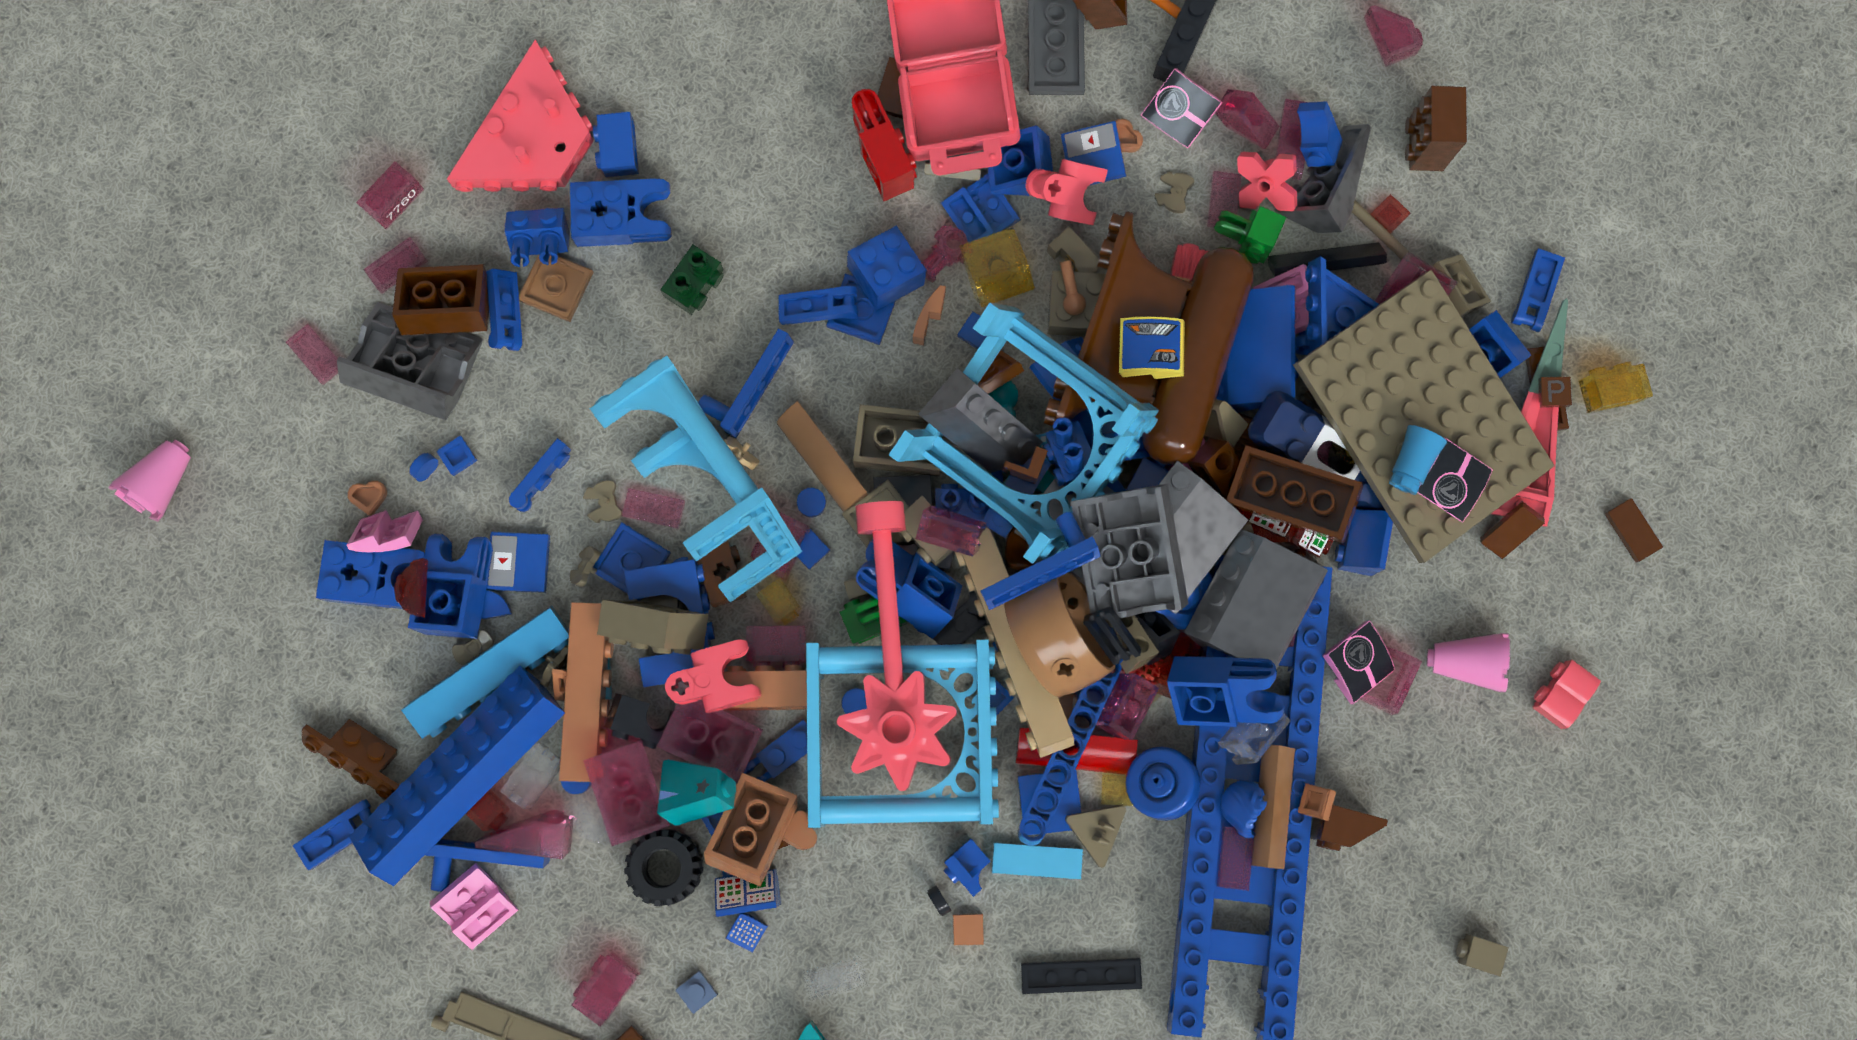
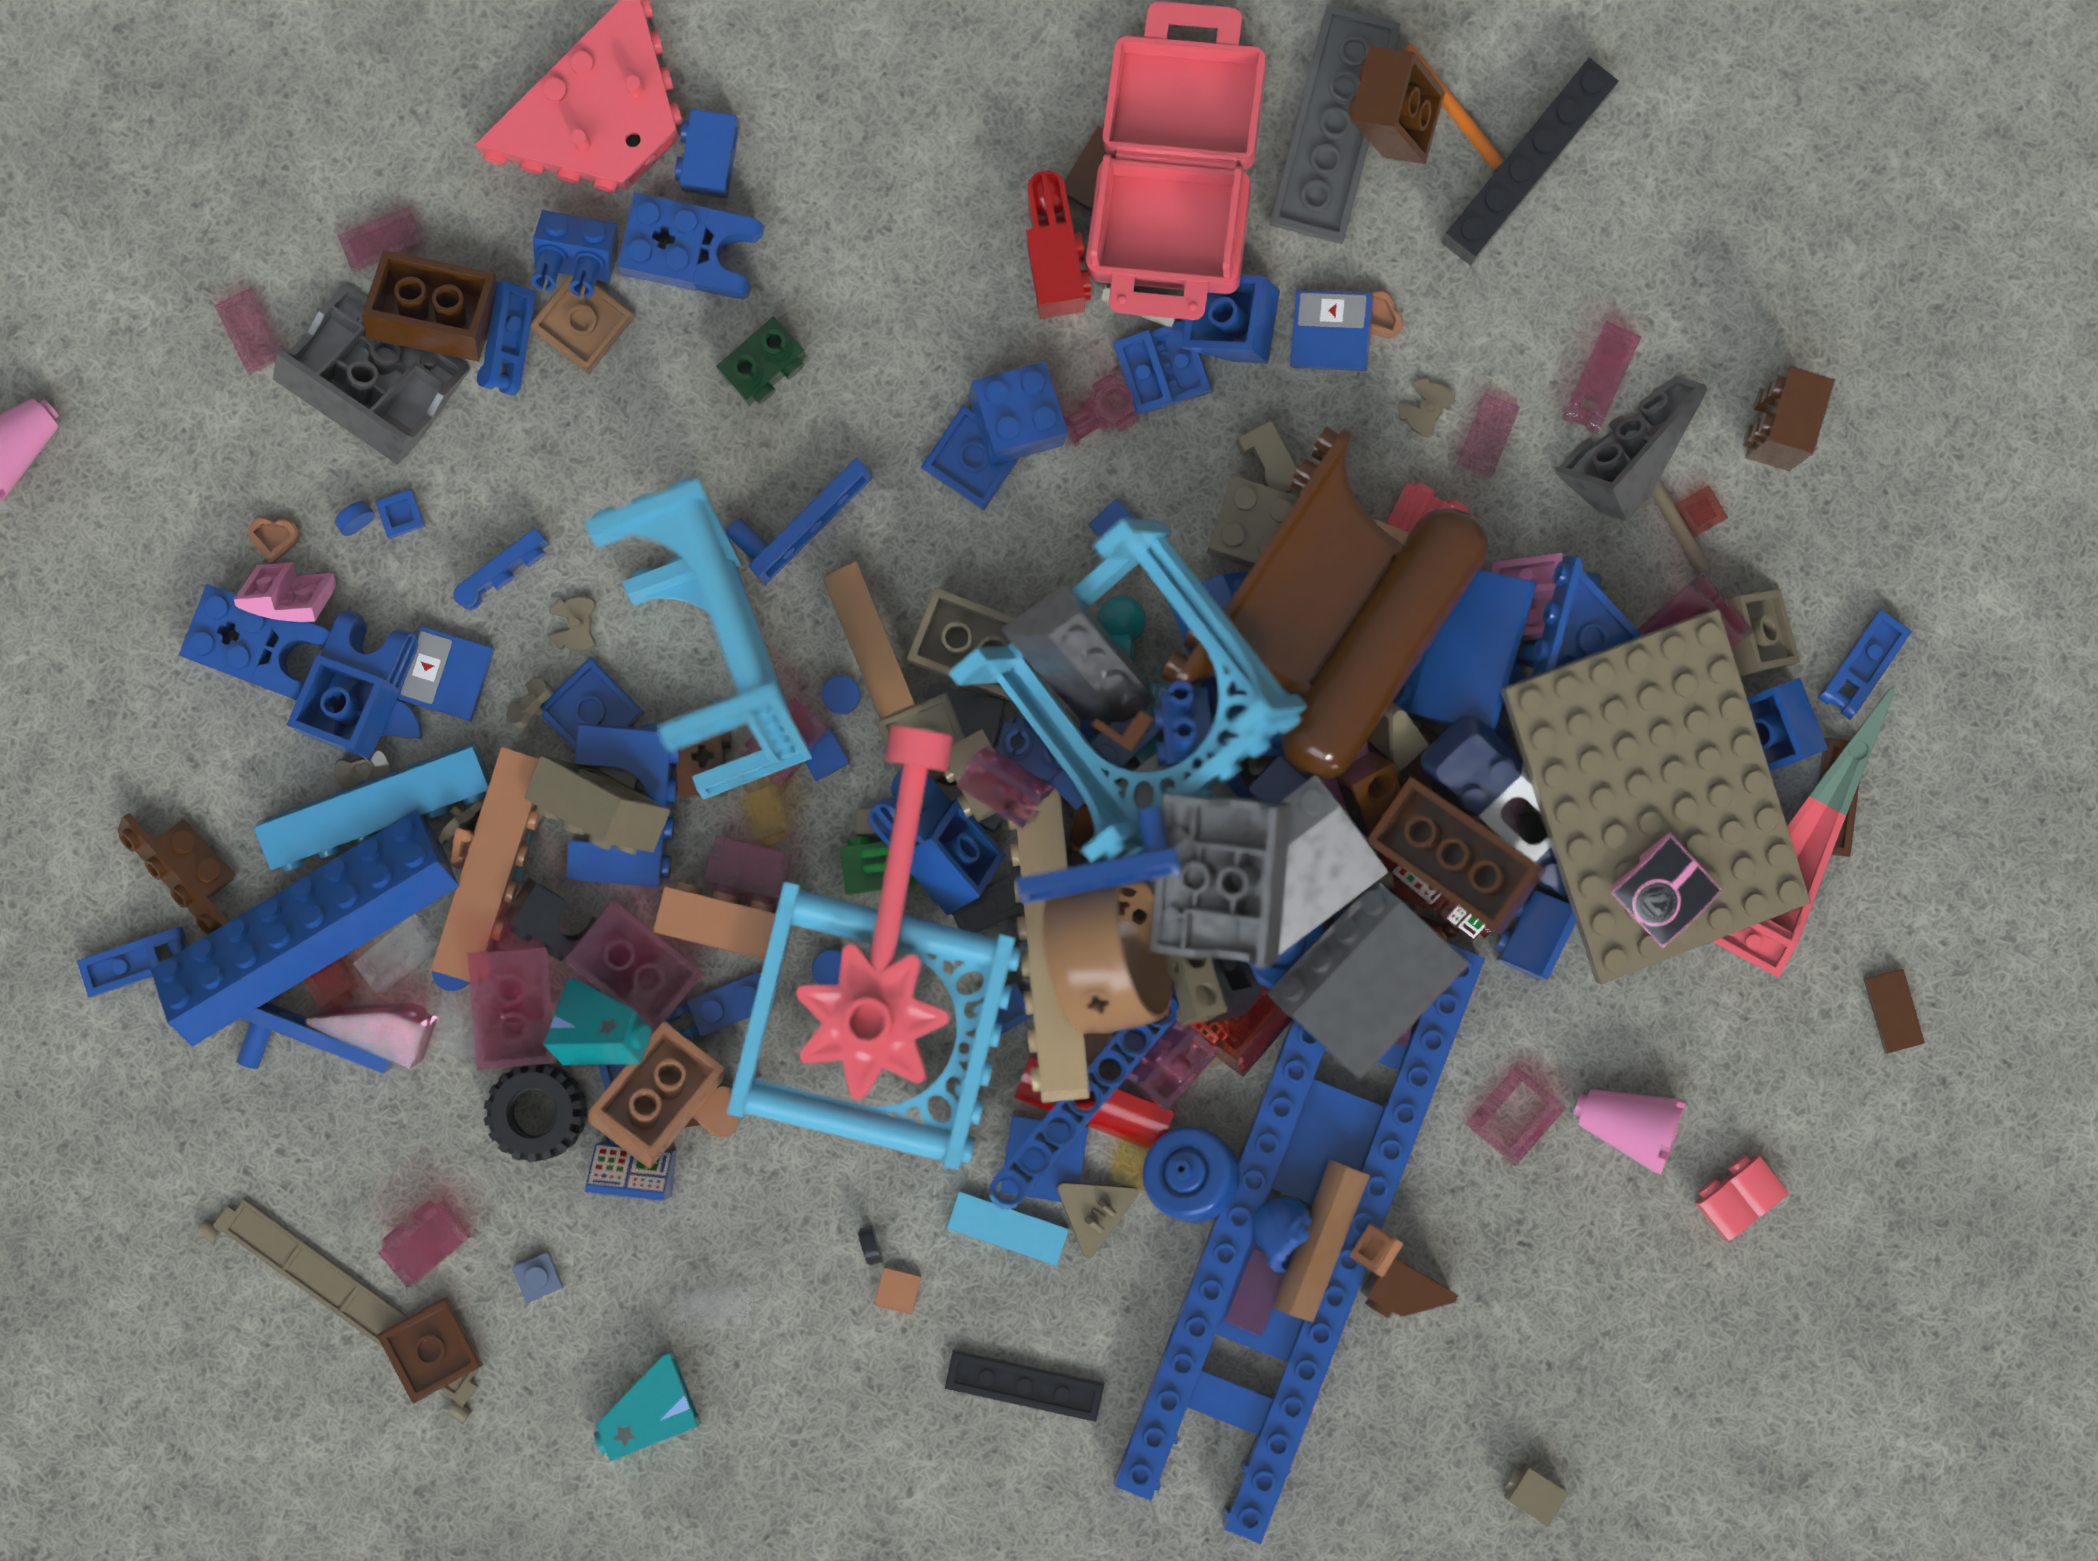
camera: 15 degrees right, 5 degrees up
(390, 195) = (395, 146): clear pink brick -> none
(411, 588) = (303, 677): clear red plate -> none
(473, 906) = (285, 1097): bright pink slope -> none
(653, 508) = (636, 649): clear pink tile -> none
(707, 679) = (649, 895): coral piece -> none
(741, 452) = (772, 616): tan piece -> none
(746, 932) = (619, 1219): blue slope -> none
(817, 305) = (915, 439): blue plate -> none
(932, 310) = (1063, 482): nougat slope -> none
(966, 866) = (915, 1211): blue brick -> none
(997, 267) = (1162, 451): clear yellow slope -> none
(1000, 371) = (1128, 593): dark orange tile -> none
(1066, 189) = (1279, 372): coral piece -> none
(1074, 302) = (1248, 526): nougat bar -> none
(1107, 636) = (1164, 975): black tile -> none
(1152, 347) = (1324, 619): slope -> none
(1181, 108) = (1464, 299): slope -> none
(1223, 691) = (1294, 1081): blue brick -> none
(1247, 117) = (1548, 332): clear pink slope -> none
(1252, 740) = (1321, 1142): clear brick -> none
(1255, 235) = (1514, 495): green brick -> none
(1267, 180) = (1547, 427): coral plant -> none
(1319, 134) = (1634, 384): blue arch -> none
(1336, 258) = (1602, 551): black tile -> none
(1359, 661) = (1486, 1087): black slope -> none
(1393, 35) = (1775, 271): clear pink slope -> none
(1416, 458) = (1622, 852): dark azure plant -> none
(1512, 530) = (1733, 970): reddish brown tile -> none
(1555, 392) = (1841, 806): reddish brown tile -> none
(1615, 387) = (1924, 820): clear yellow brick -> none

